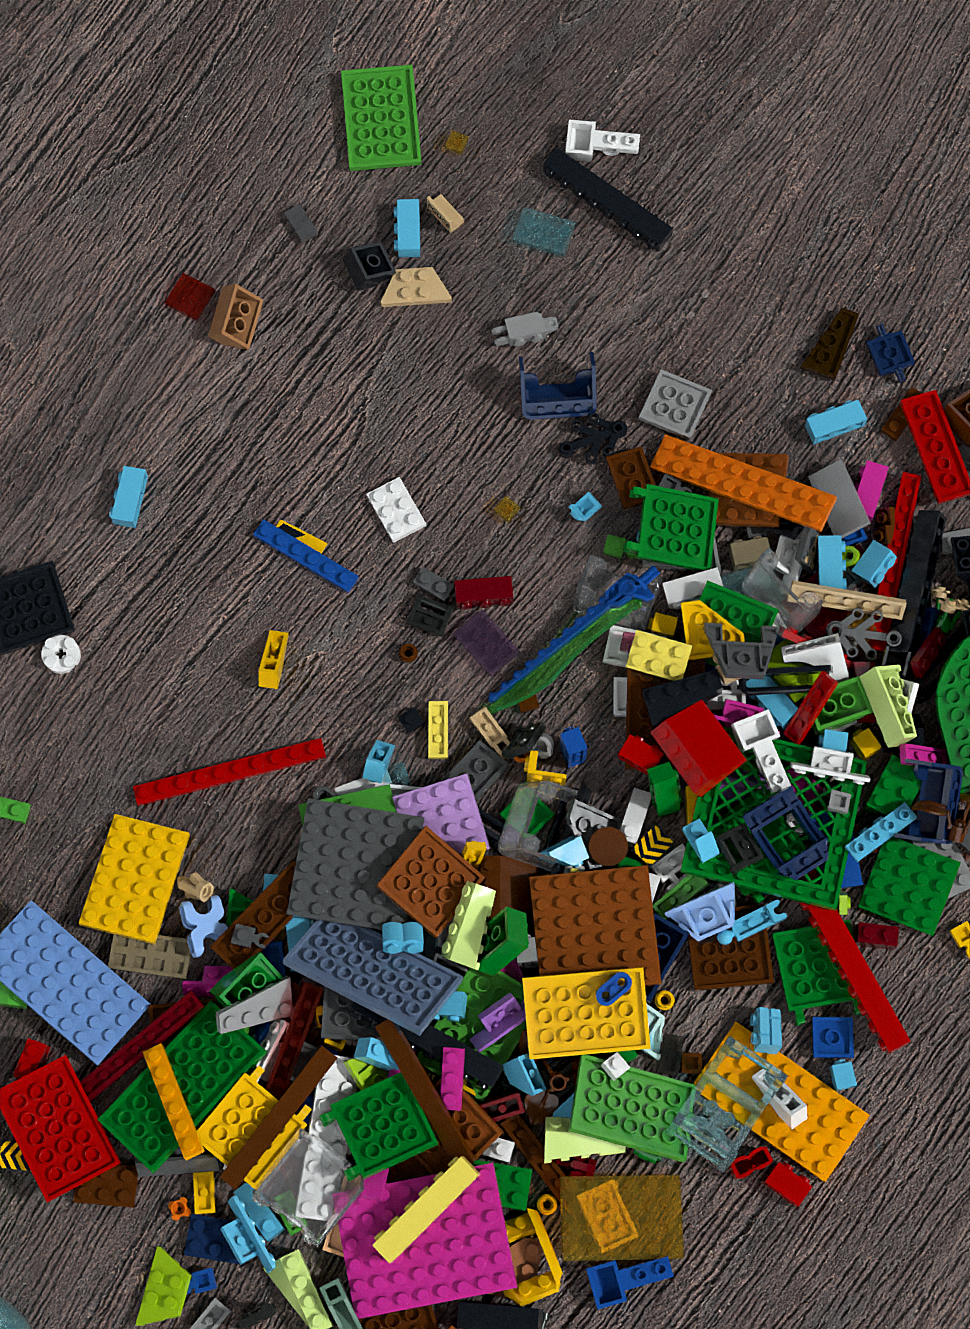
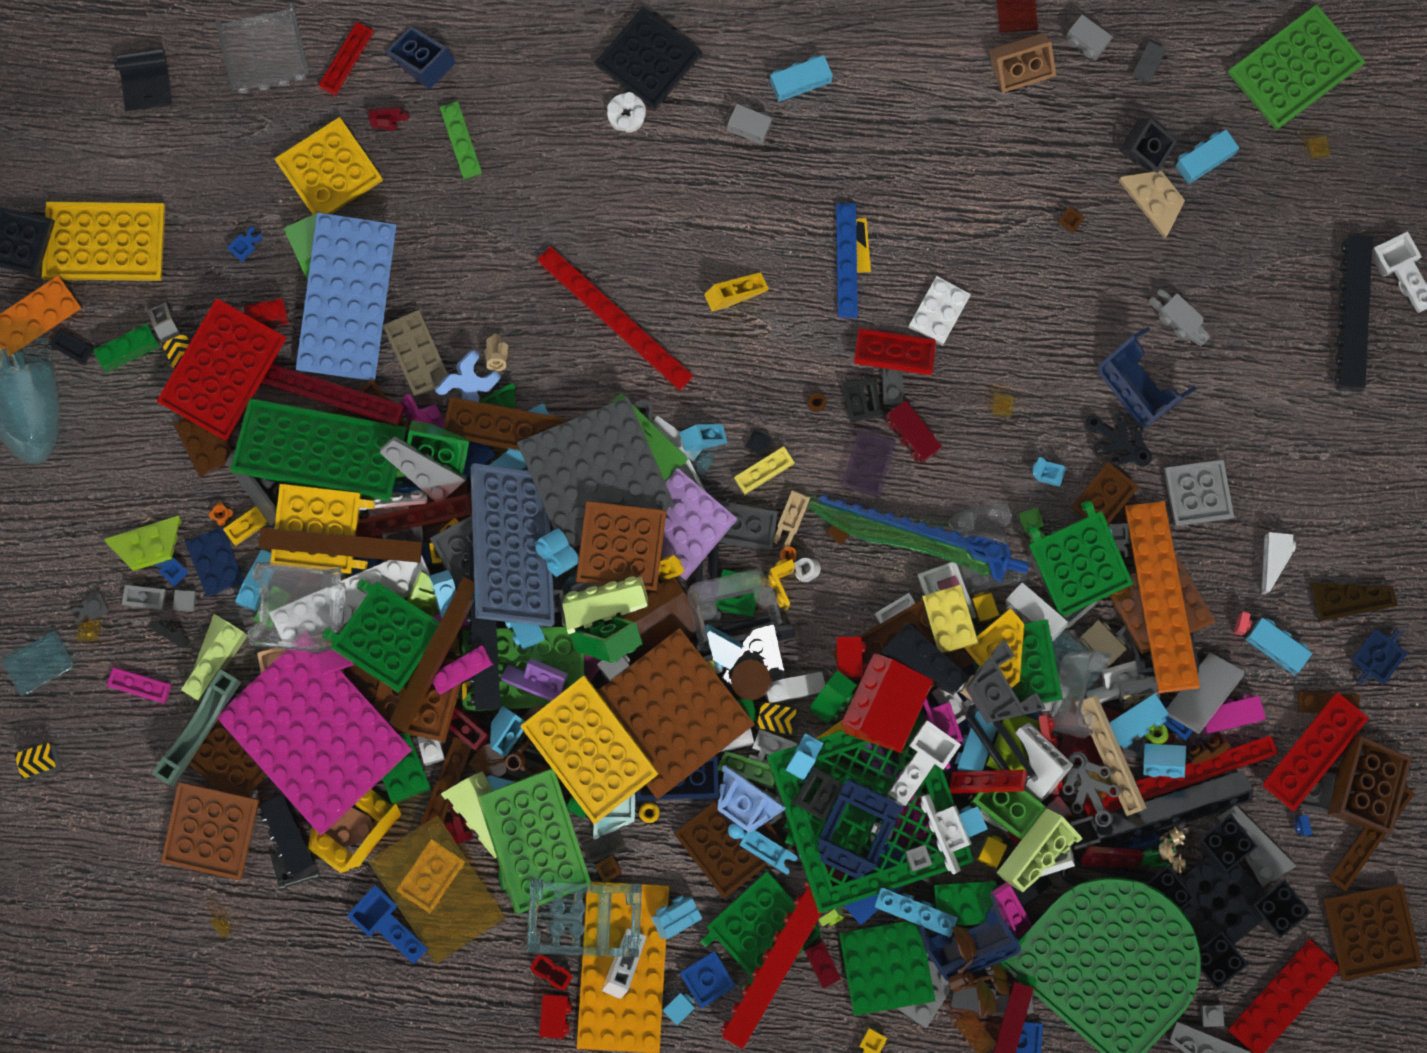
camera: 50 degrees right, 5 degrees up
(134, 879) = (471, 298): yellow plate -> none
(139, 560) = (749, 123): none -> light grey brick
(173, 1102) = (299, 450): light orange plate -> none
(235, 1287) = (184, 601): none -> light grey tile
(244, 1238) = (225, 581): medium azure bracket -> none
(245, 936) = (477, 421): dark grey plate -> none
(250, 255) = (1088, 37): none -> light grey brick
(390, 362) = (1071, 220): none -> reddish brown plate
(408, 564) = (894, 351): none -> red plate
(425, 1209) = (337, 717): light yellow brick -> none
(445, 212) = (1244, 179): tan panel -> none
(524, 740) = (800, 549): pearl dark grey plate -> none
(544, 232) = (1285, 277): clear light blue plate -> none
(547, 1197) = (406, 814): yellow plate -> none
(572, 747) = (819, 594): blue brick -> none
(615, 990) = (623, 759): blue plate -> none
(615, 1066) = (560, 803): white plate -> none
(762, 378) = (1277, 552): none -> white slope
(801, 437) = (1243, 623): none -> coral plate

